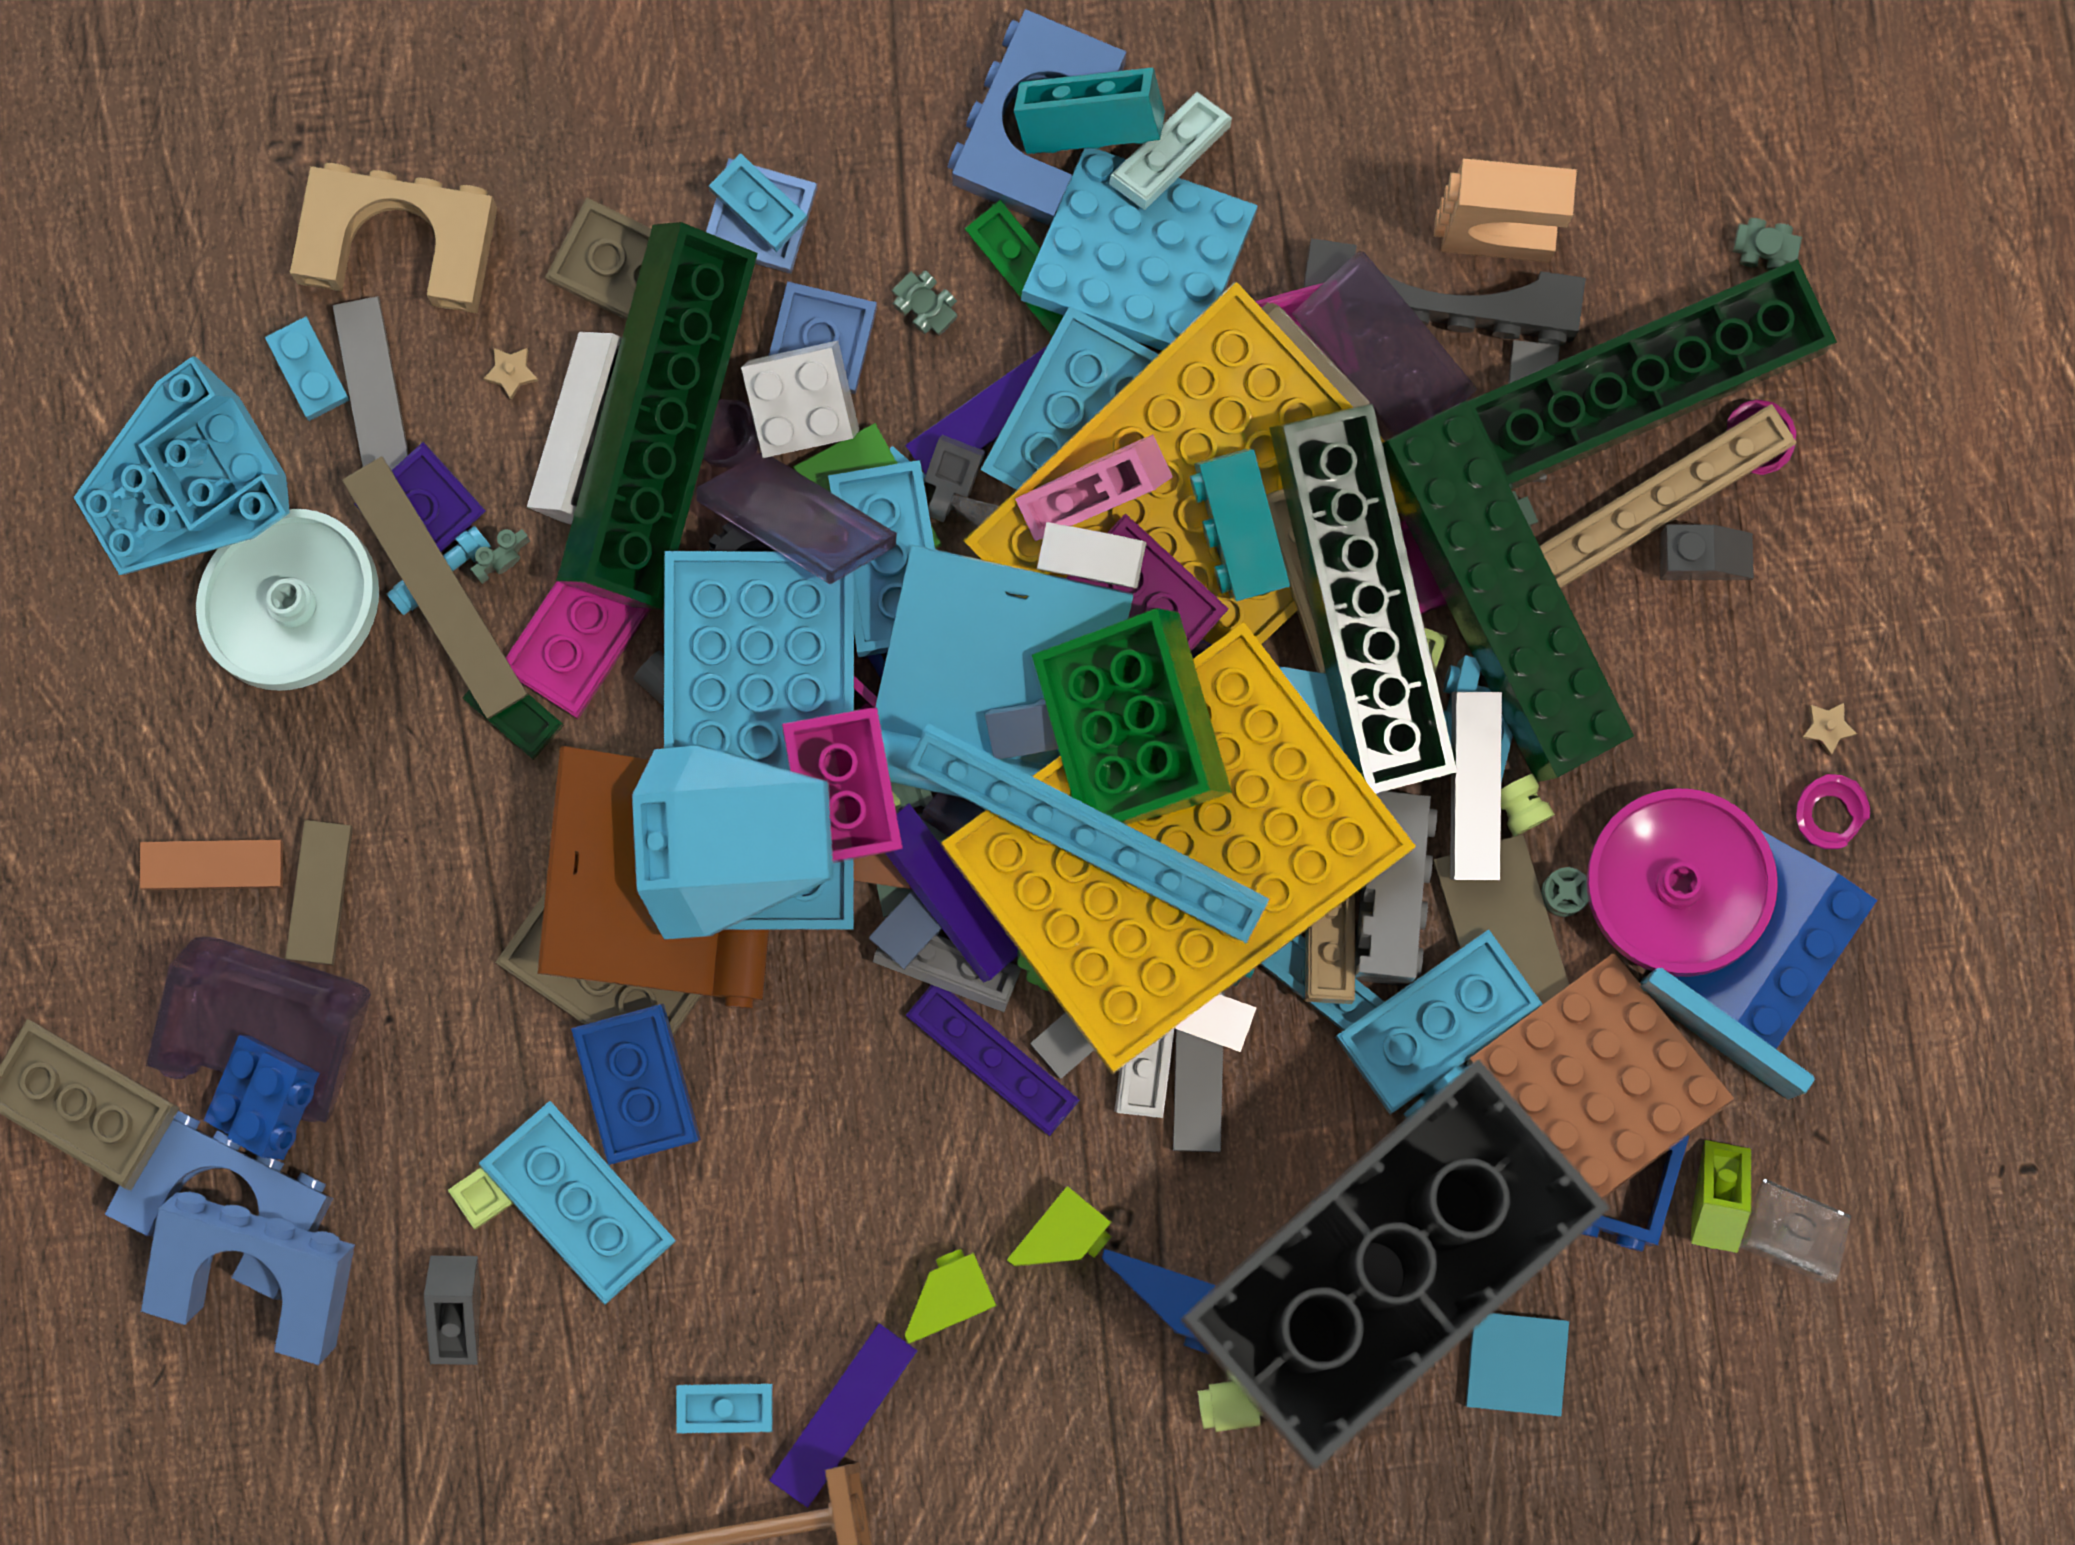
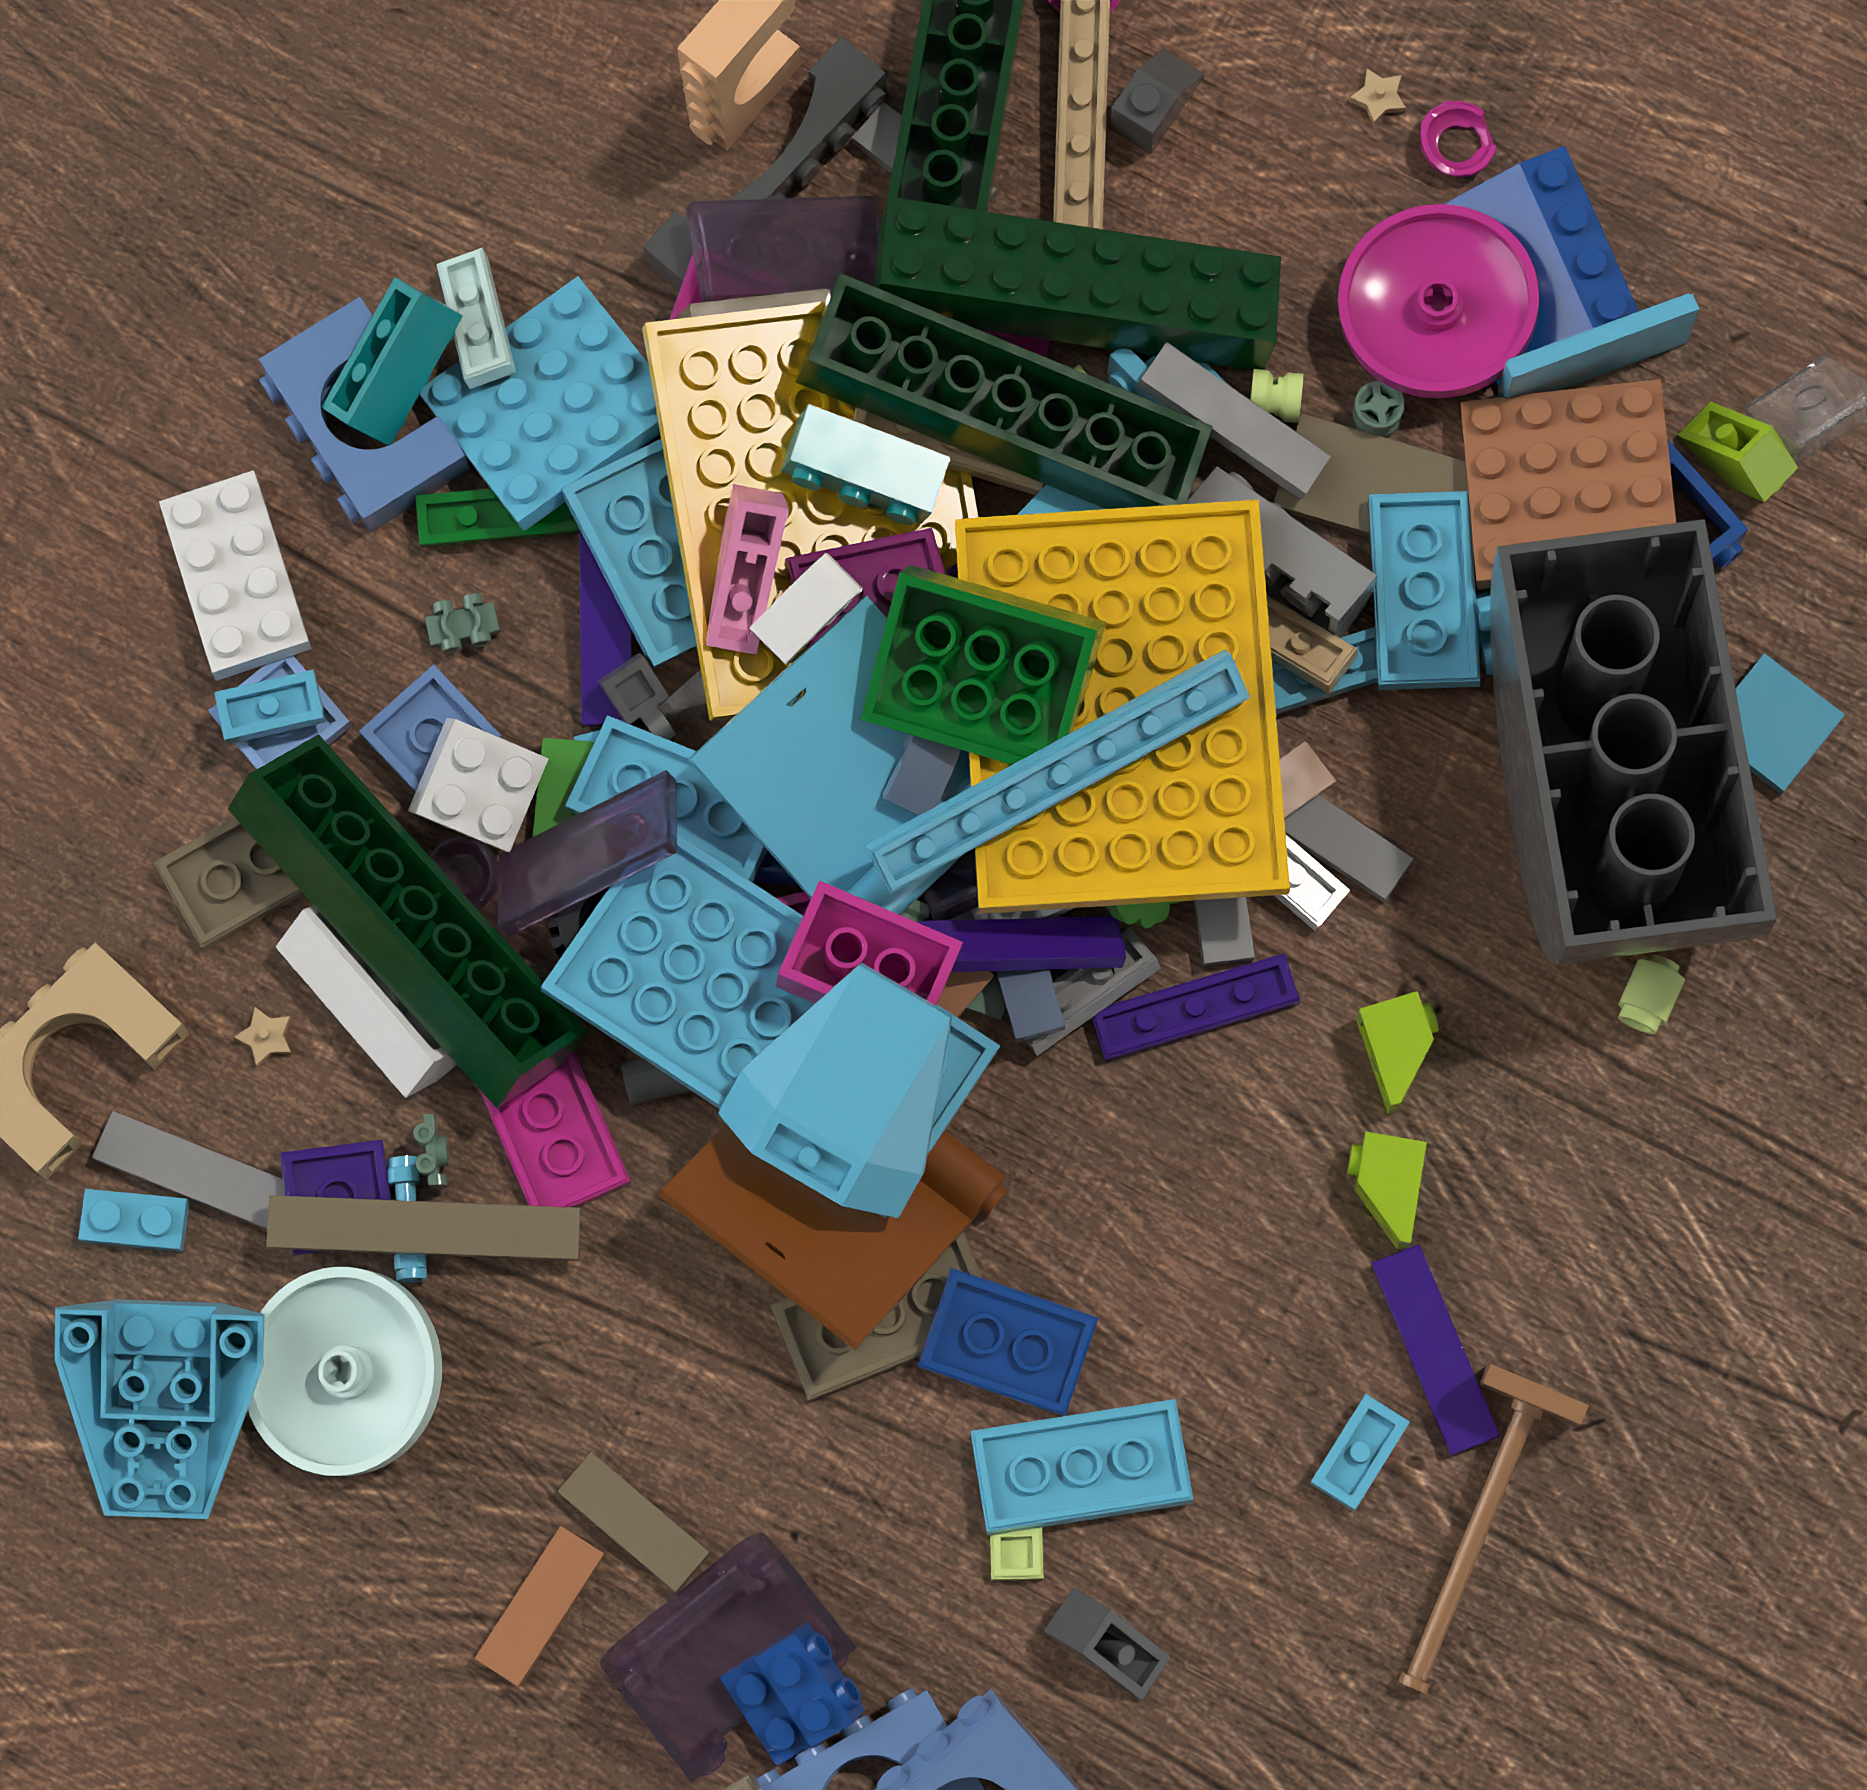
camera: 50 degrees left, 5 degrees down
(523, 723) = (604, 1233): dark green tile -> none
(847, 107) = (235, 575): none -> white plate
(1162, 1290) = (1516, 986): blue slope -> none

